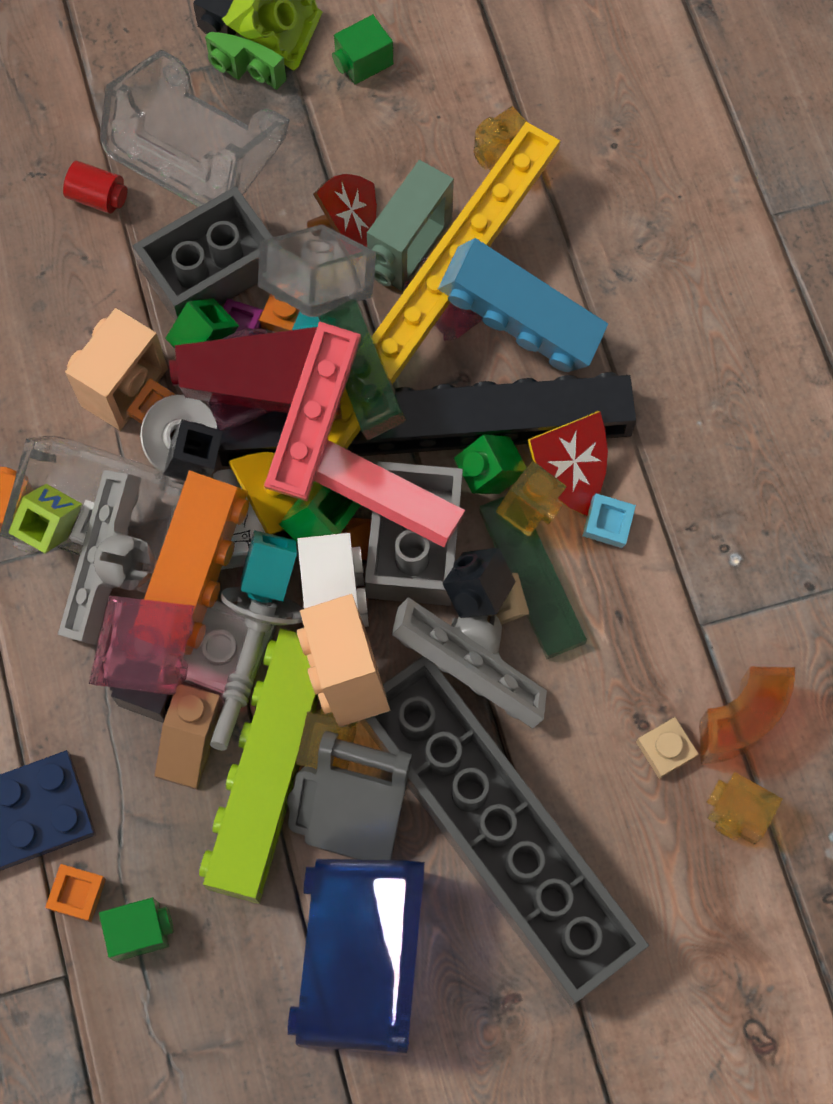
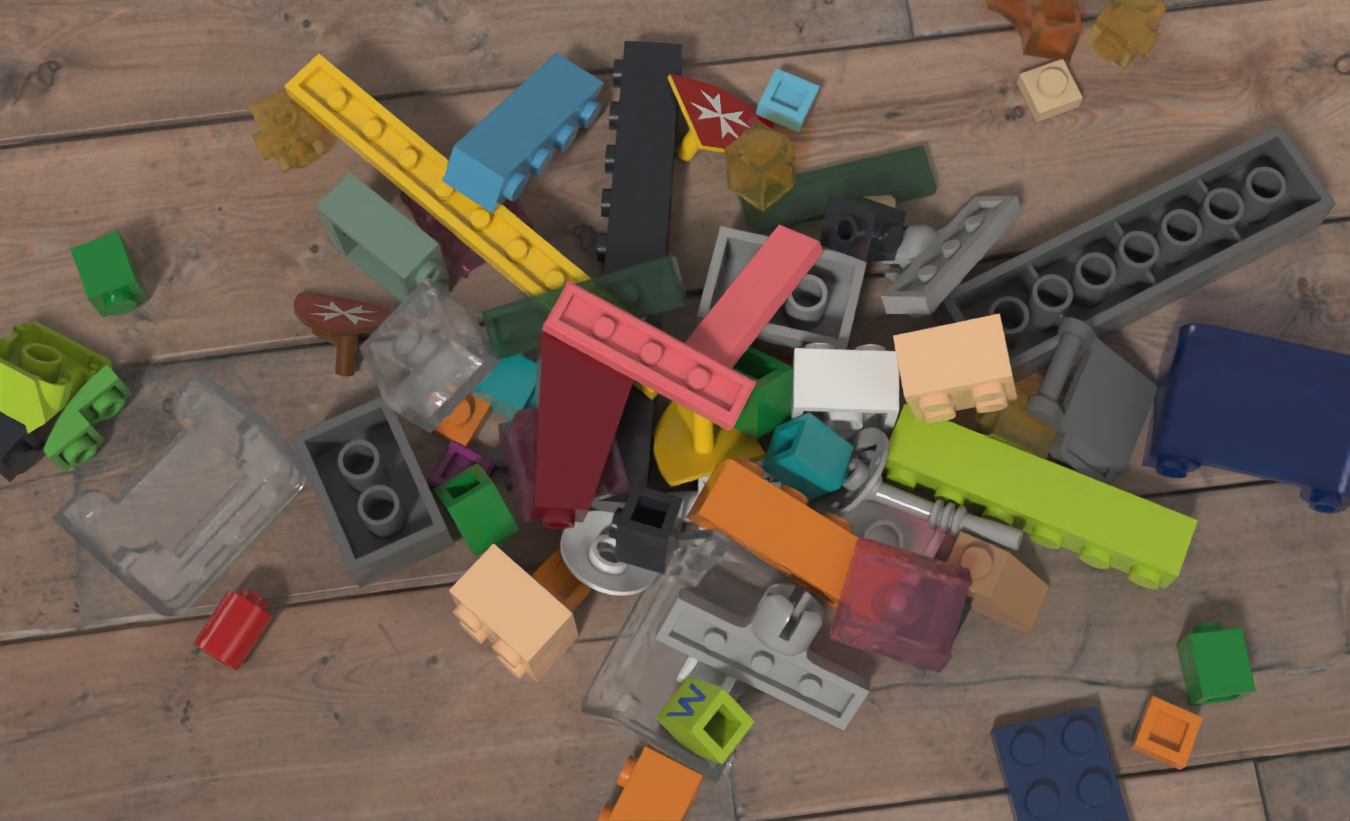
camera: 80 degrees left, 0 degrees up
(490, 464) = (707, 204): green brick -> none

